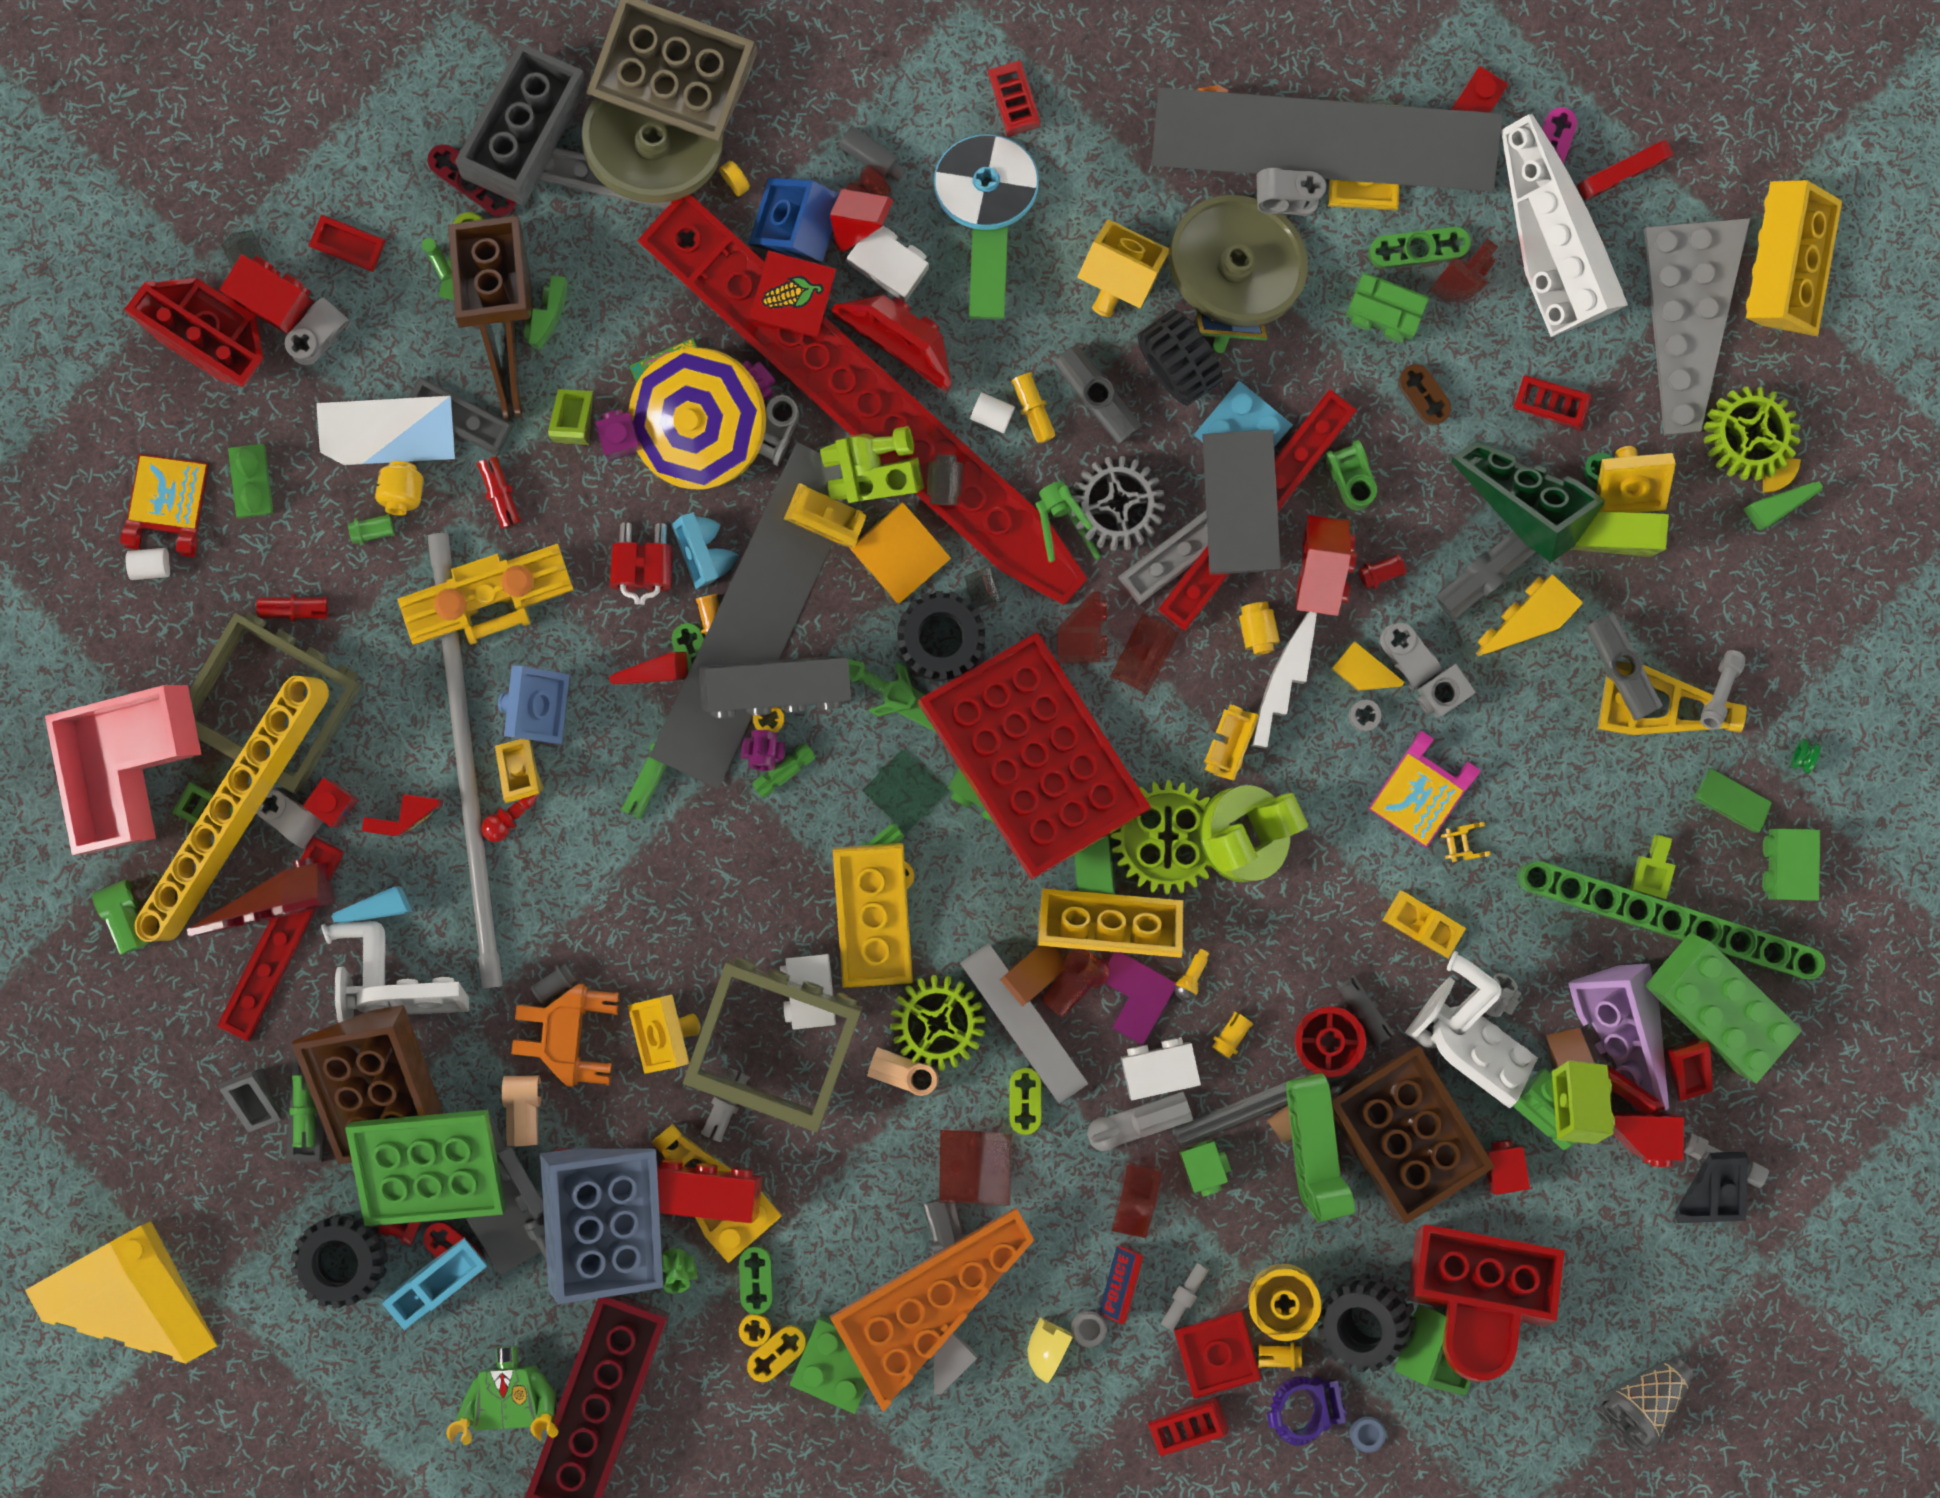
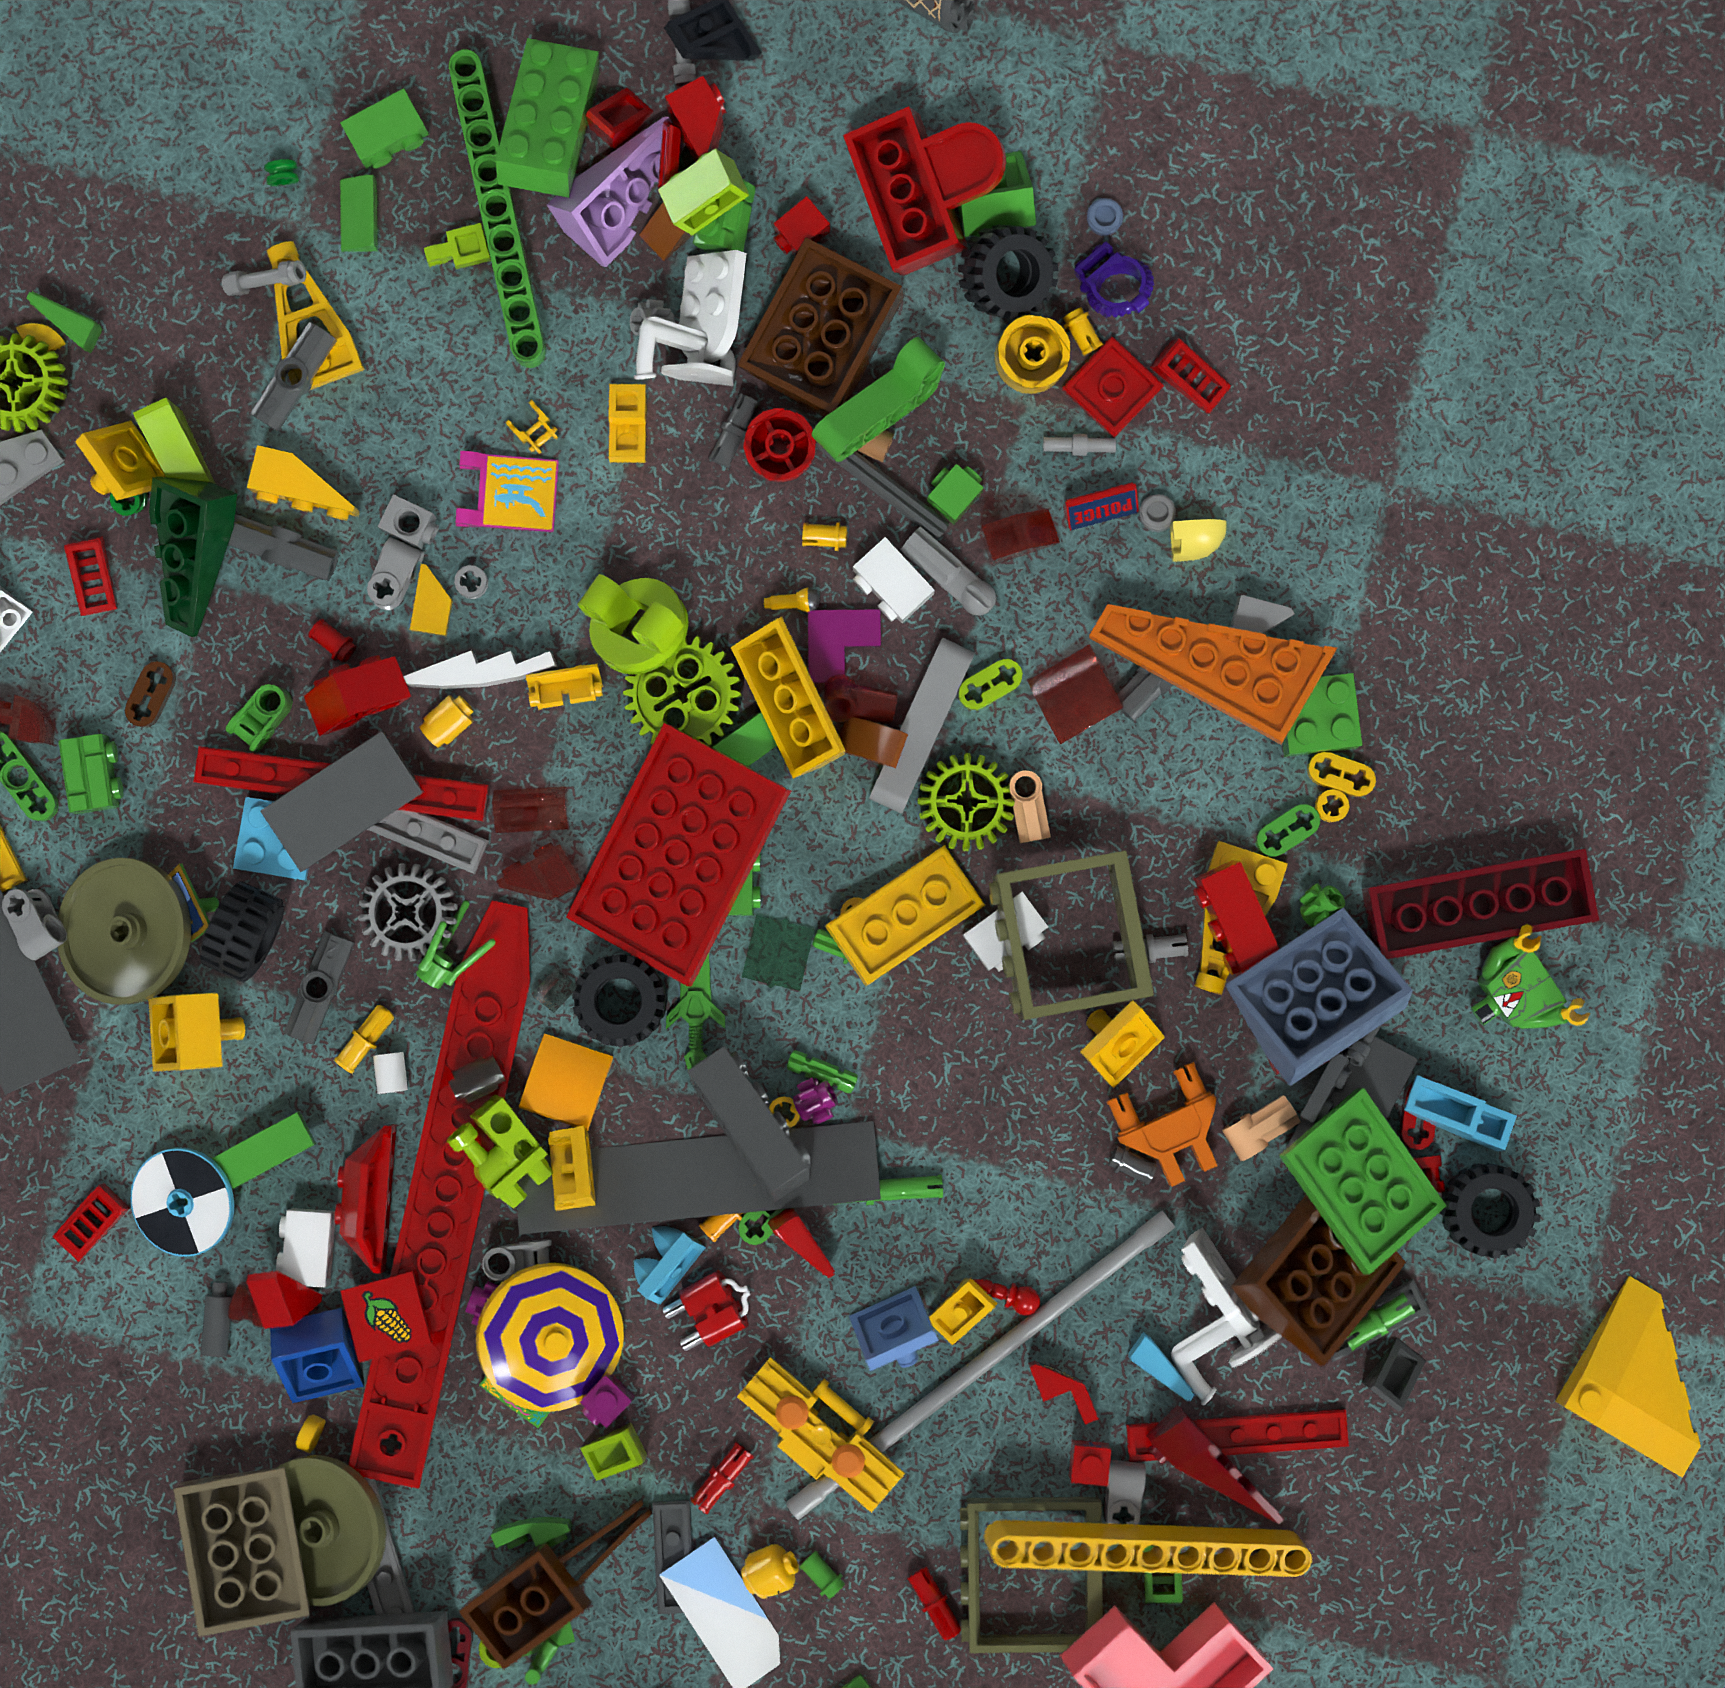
camera: 115 degrees left, 0 degrees up
(119, 910) = (1297, 1596): bright green piece -> none

